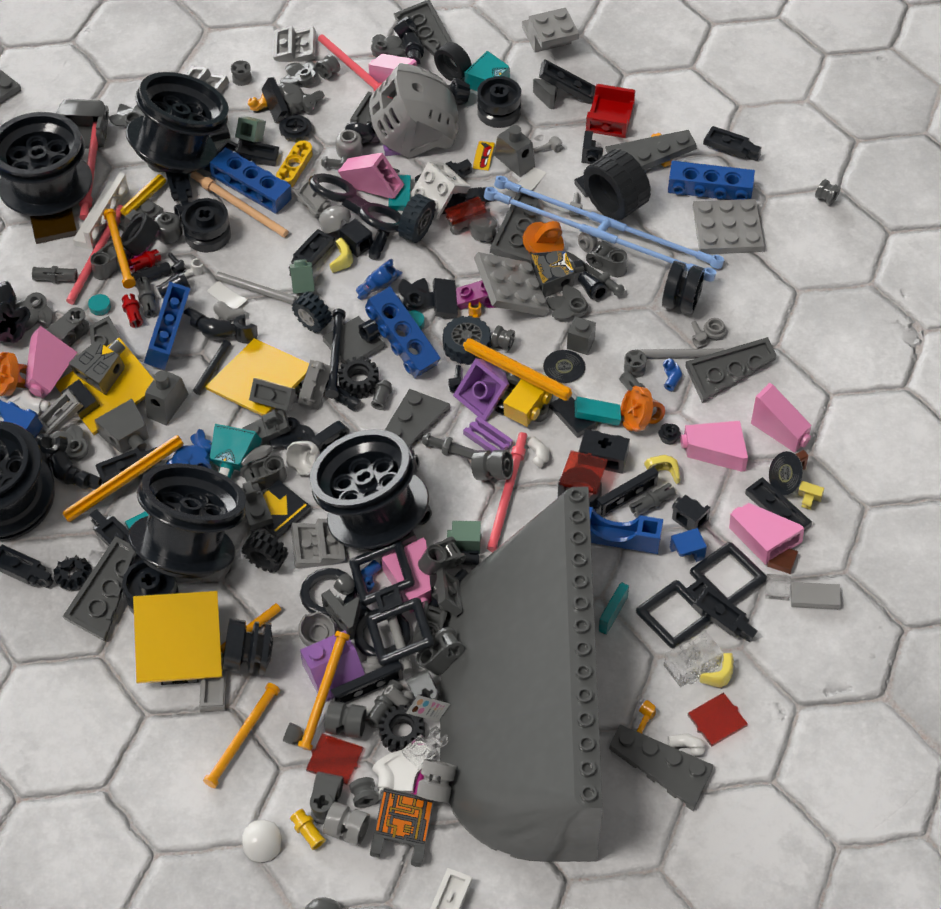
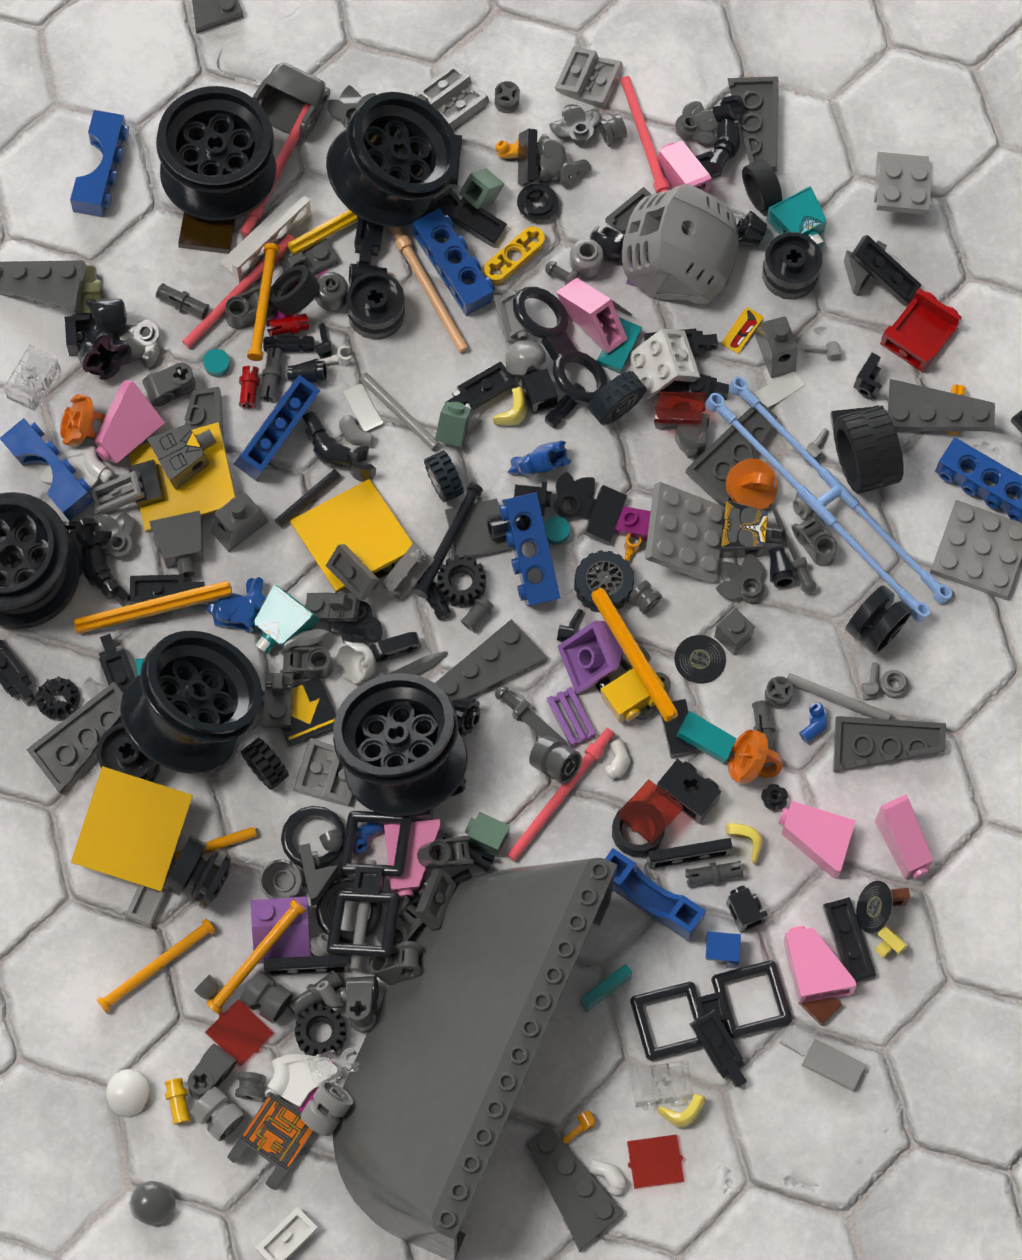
camera: 20 degrees right, 15 degrees up
(427, 708) = (353, 1024): white sticker -> none

